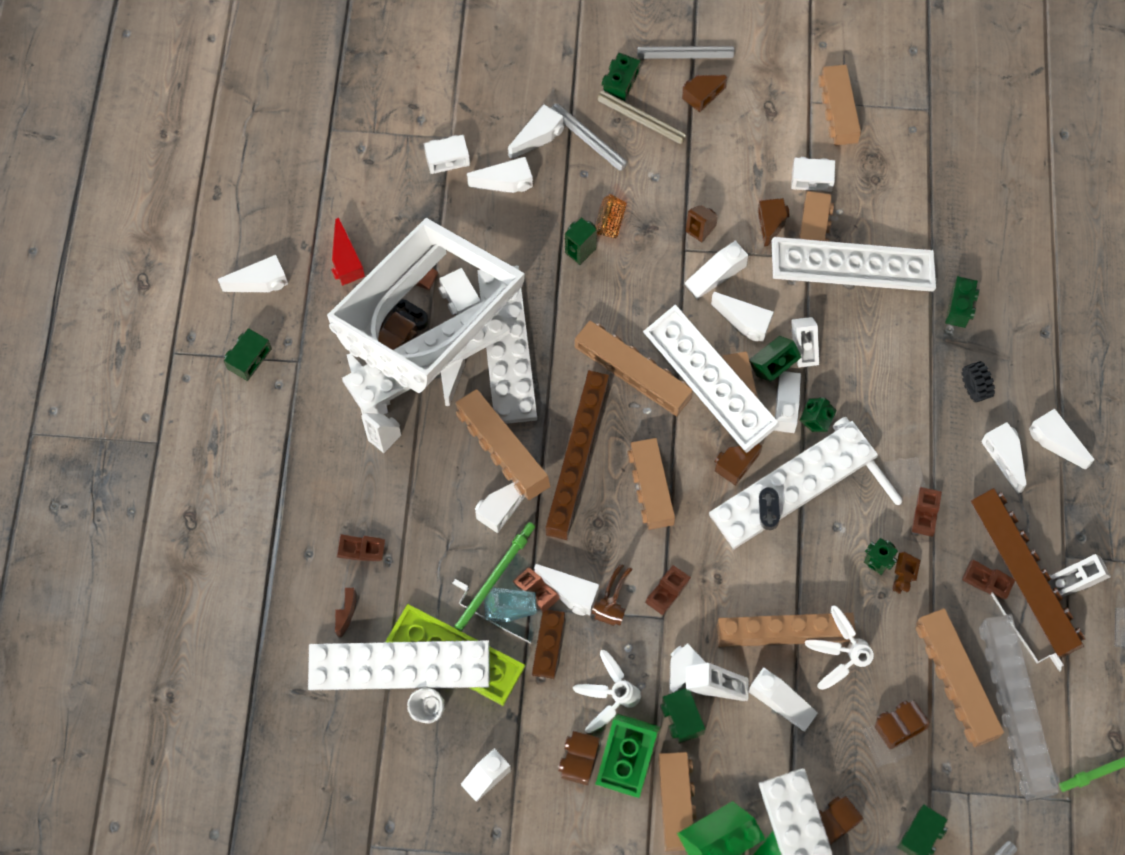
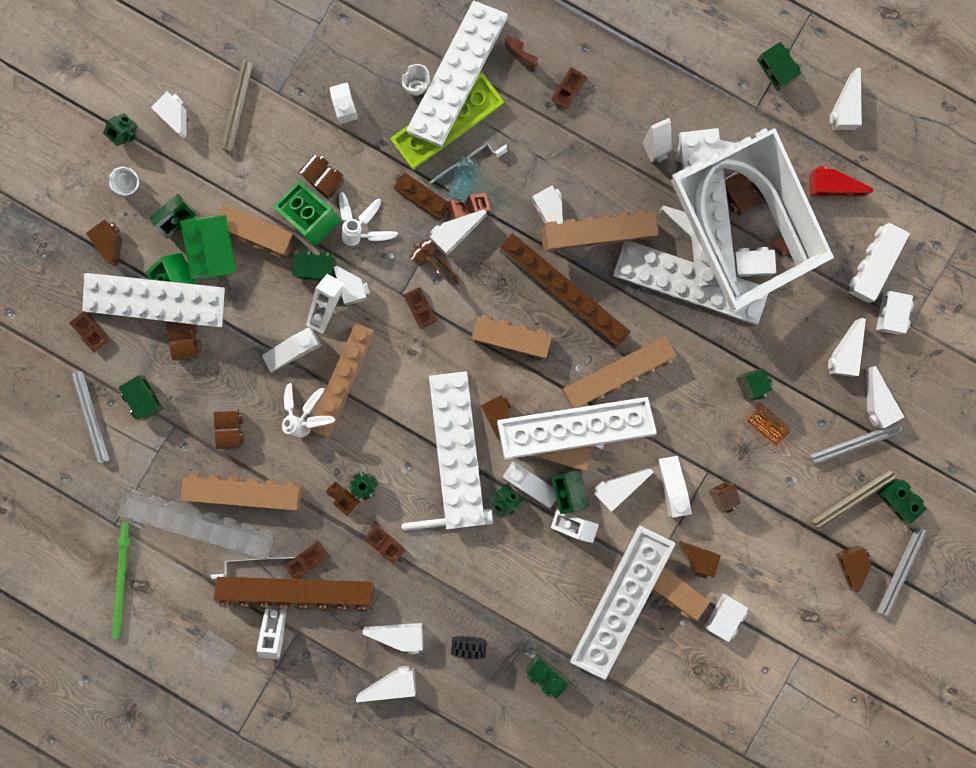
camera: 115 degrees right, 20 degrees up
(404, 187) = (878, 262): none -> white brick
(412, 310) = (753, 212): black beam -> none
(518, 543) = (514, 211): bright green bar -> none
(774, 508) = (445, 412): black beam -> none
(840, 105) = (784, 679): medium nougat brick -> none

